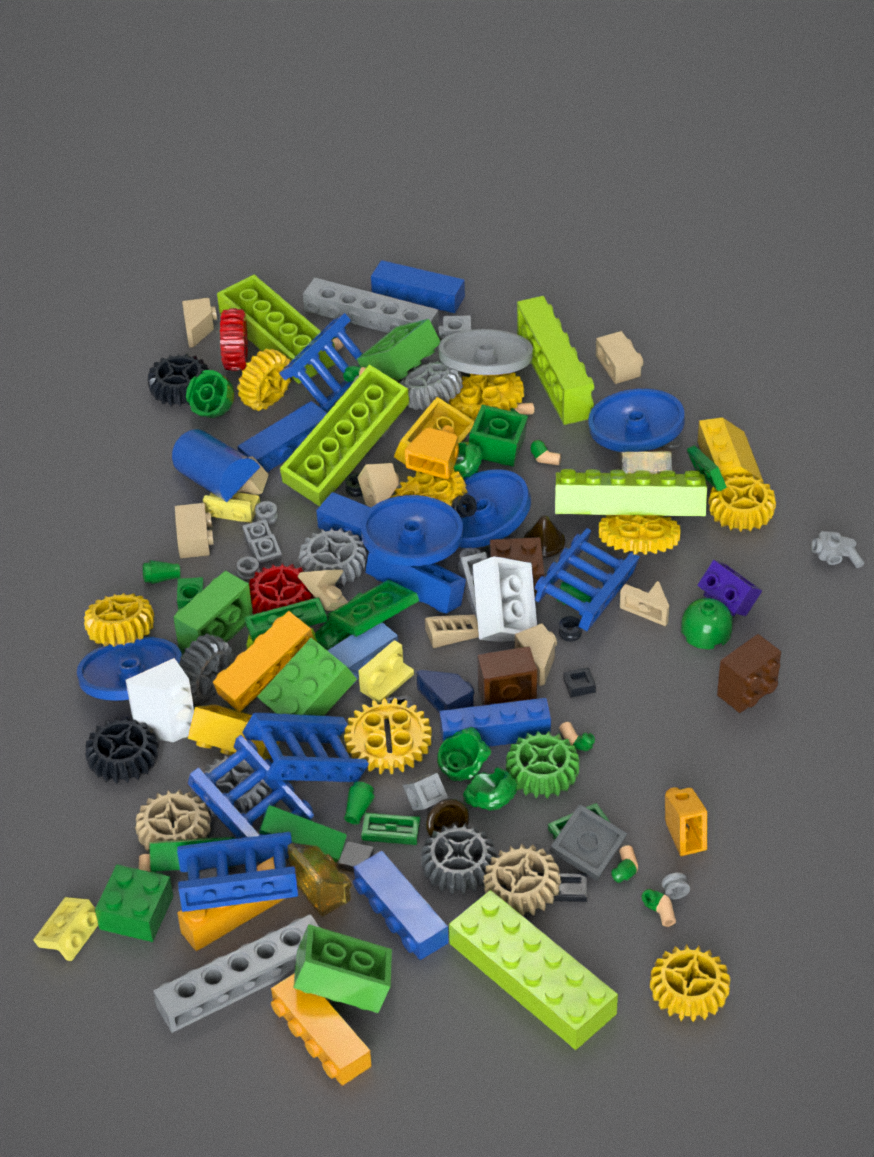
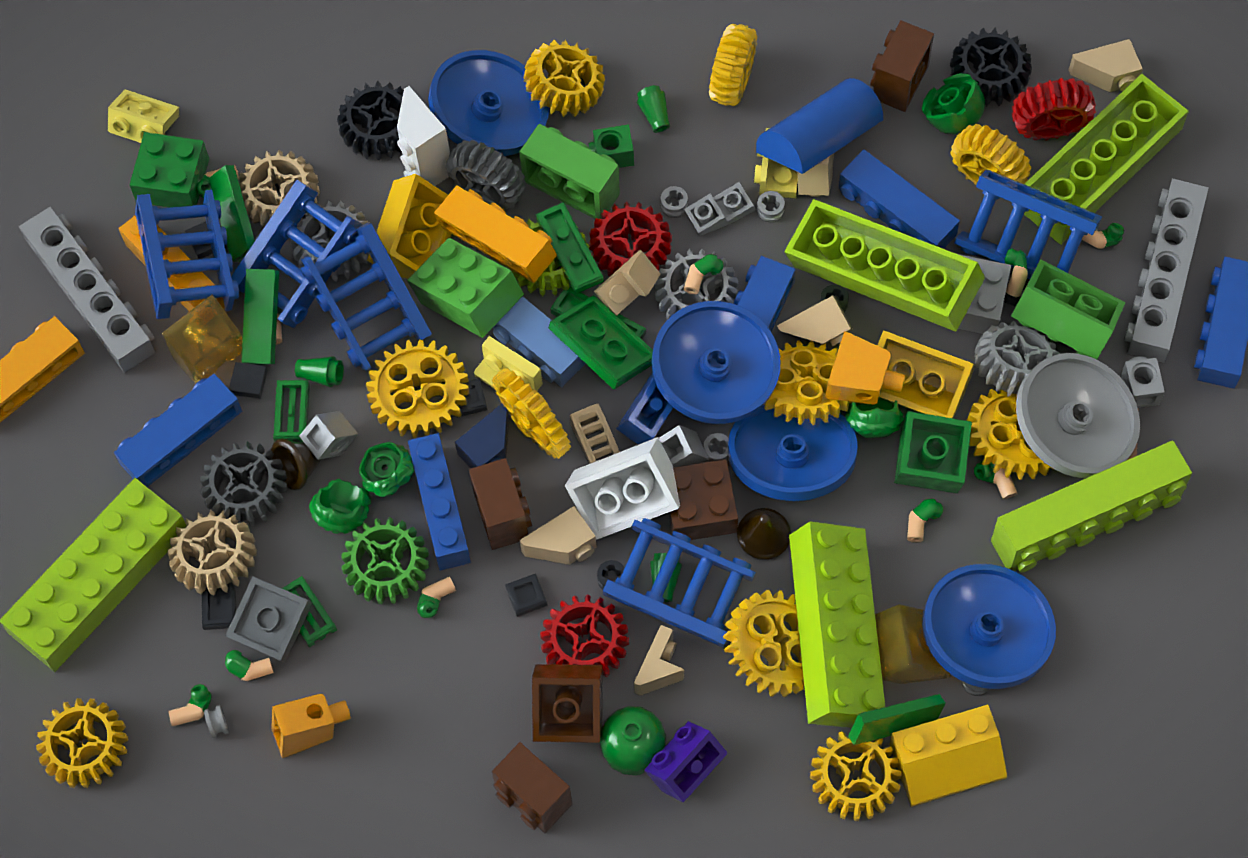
camera: 85 degrees right, 20 degrees up
(140, 511) = (733, 64): none -> yellow gear
(168, 415) = (902, 65): none -> reddish brown brick
(193, 531) = (724, 129): tan brick -> none
(324, 541) = (699, 269): none -> arm
(343, 968) = (70, 377): bright green brick -> none
(447, 630) = (531, 413): none -> yellow gear
(467, 501) = (781, 412): black bush -> none
(618, 357) = (1126, 597): tan brick -> none
(623, 644) = (560, 626): none -> red gear
(681, 646) = (567, 703): none -> reddish brown brick

